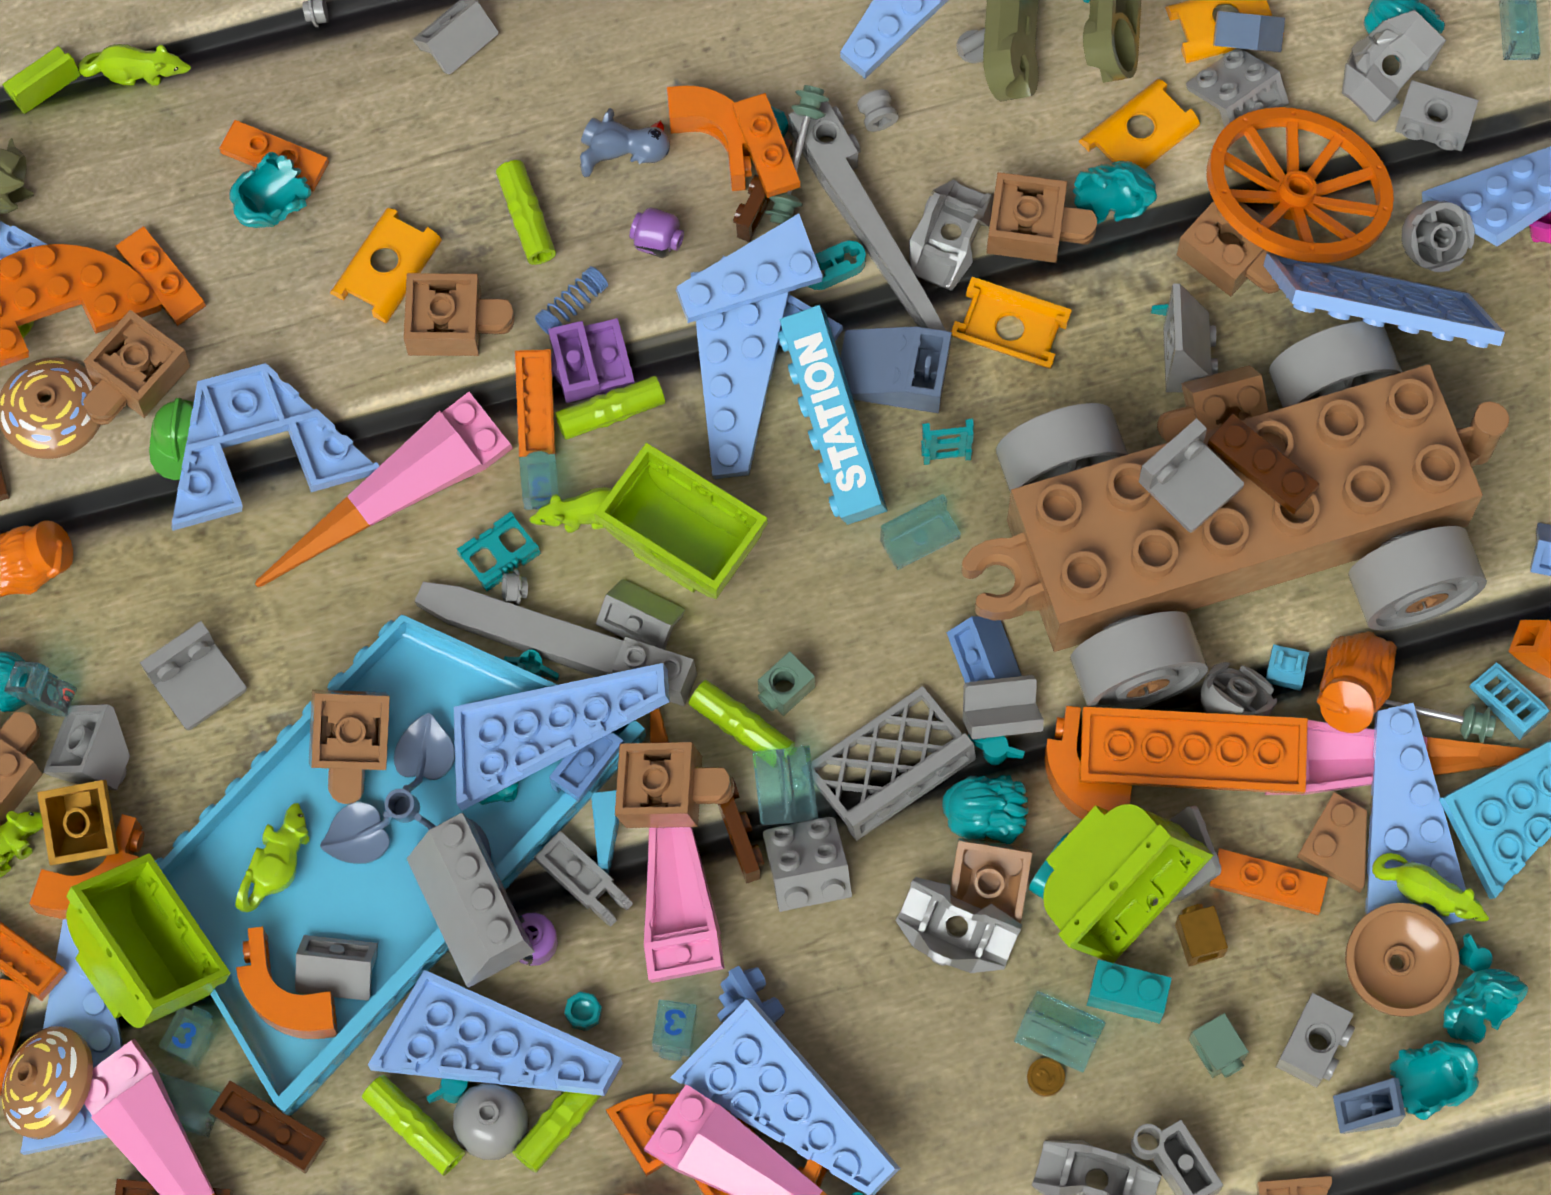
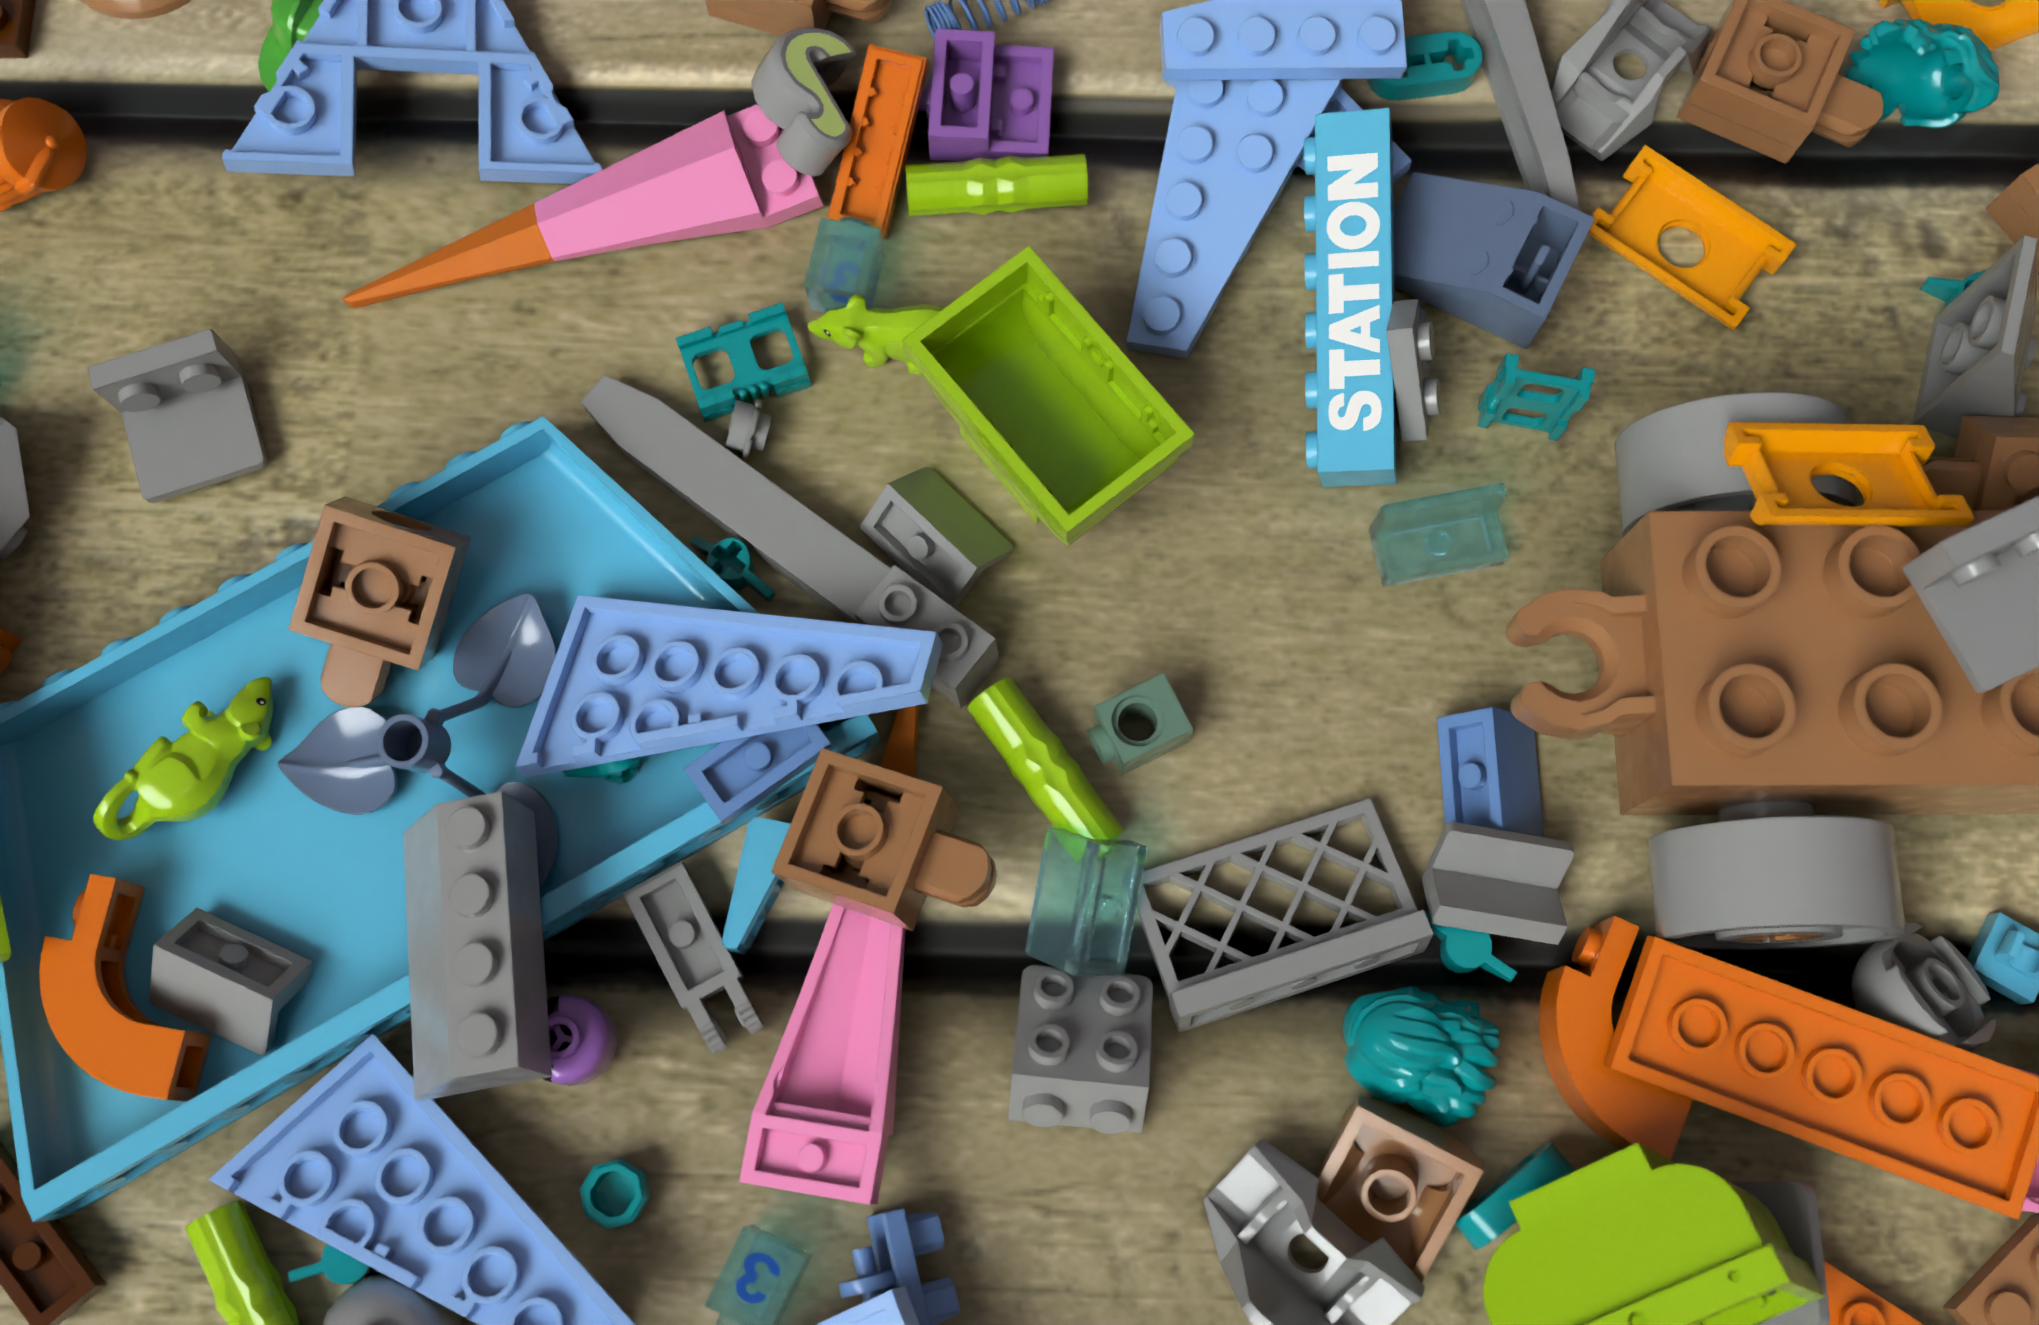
camera: 15 degrees right, 5 degrees up
(483, 393) = (795, 96): none -> light grey animal
(737, 827) = (982, 948): reddish brown plate -> none
(876, 445) = (1411, 354): none -> light grey hinge
(1118, 427) = (1876, 458): none -> light orange piece

